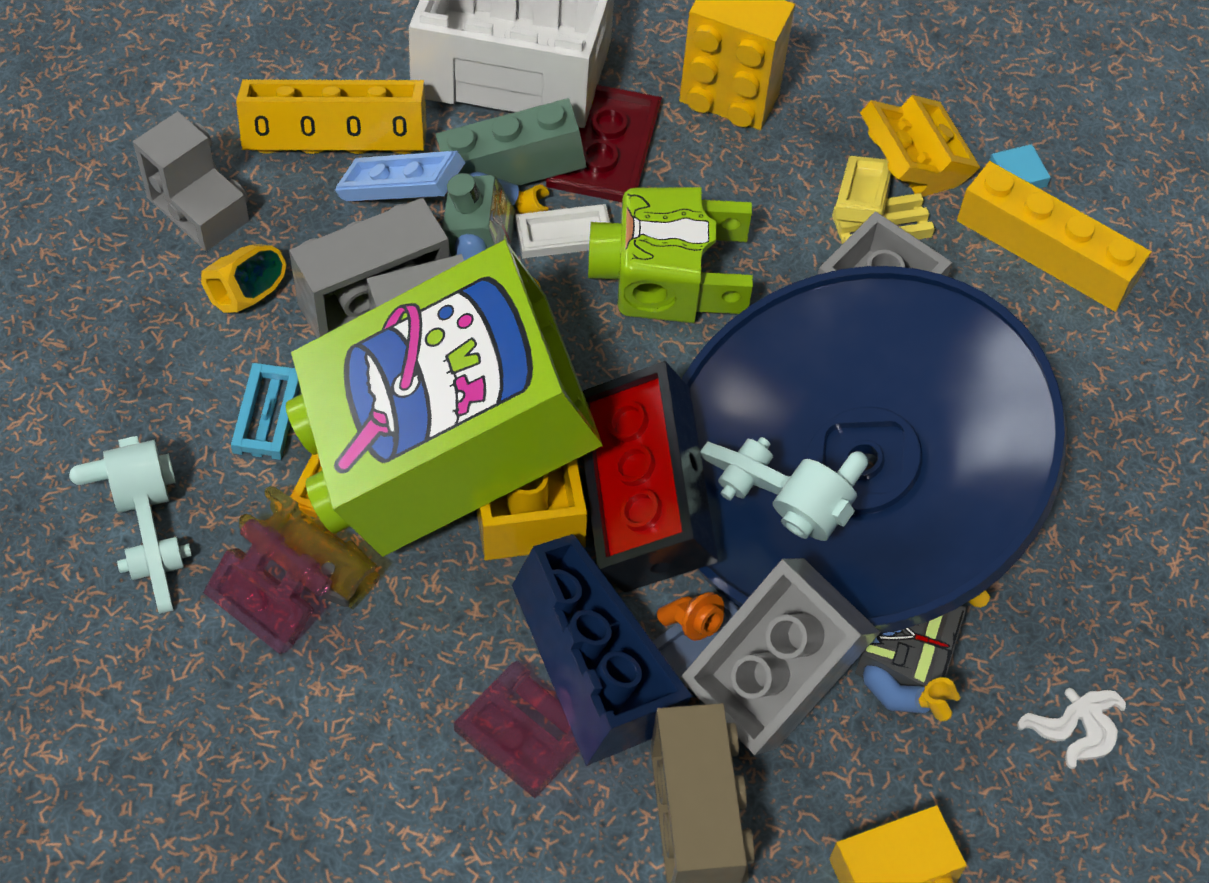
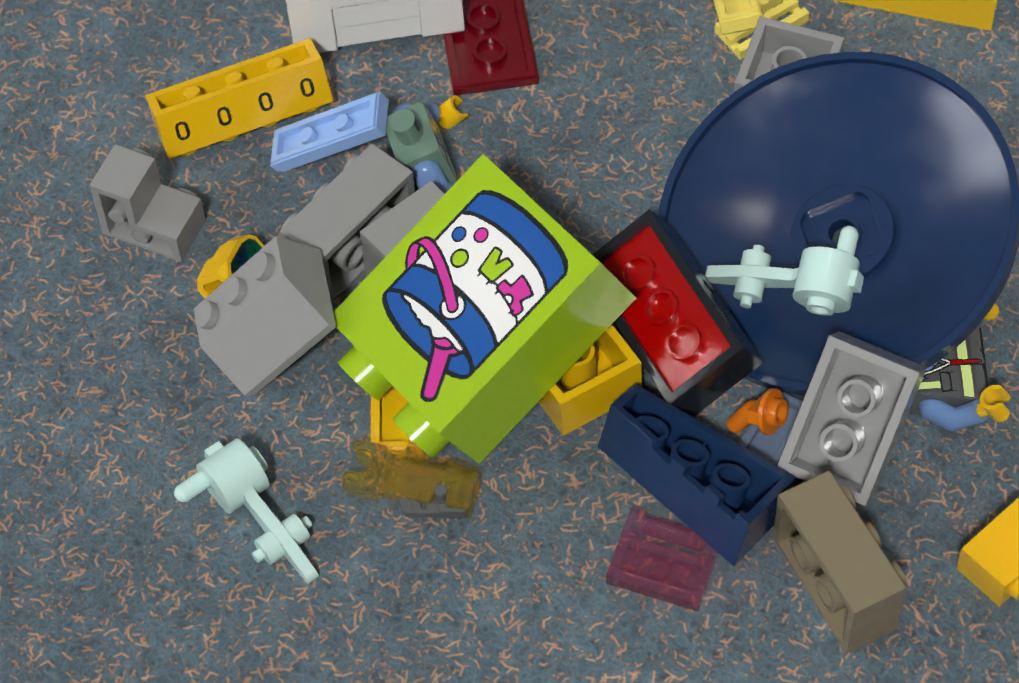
camera: 15 degrees left, 0 degrees up
(241, 325) = (266, 314): none -> light grey slope
(257, 597) = (390, 537): clear pink plate -> none
(260, 446) = (318, 413): medium azure tile -> none
(520, 144) = (421, 65): sand green brick -> none
(557, 230) = (490, 129): white tile -> none
(660, 253) = (592, 118): lime piece -> none

